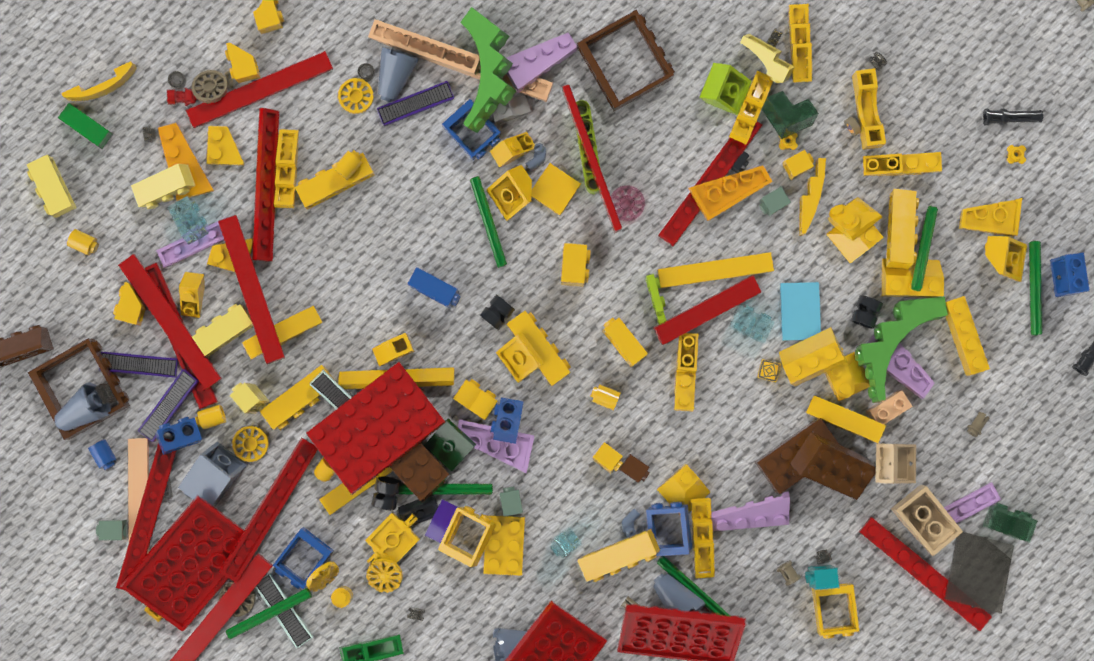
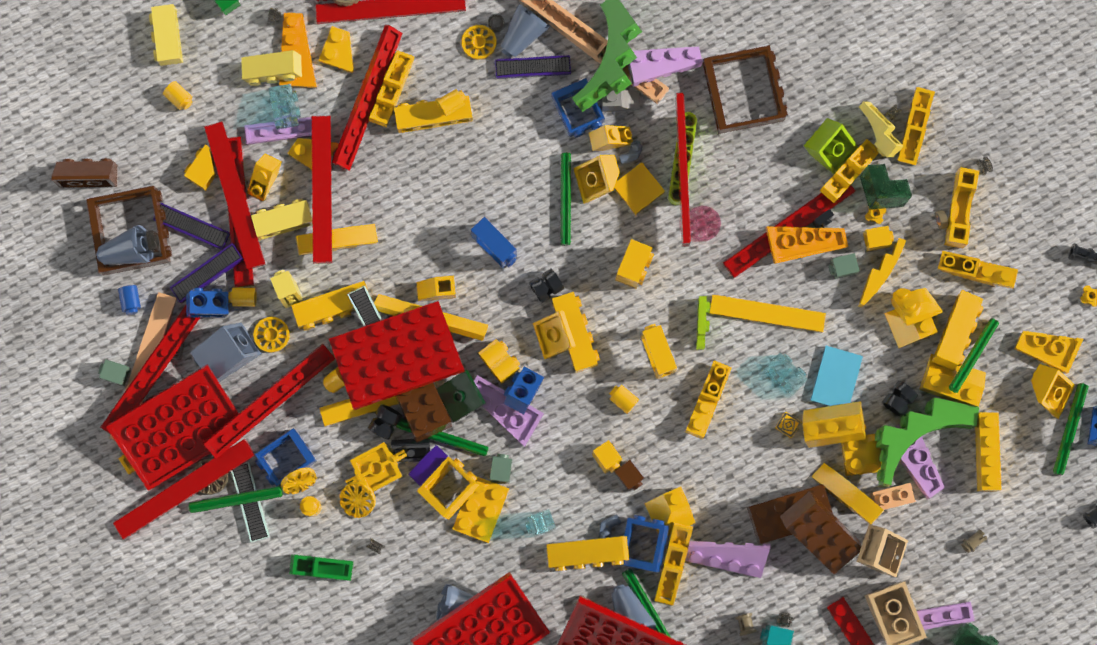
camera: 15 degrees right, 5 degrees down
(707, 310) = (747, 347): red tile -> none

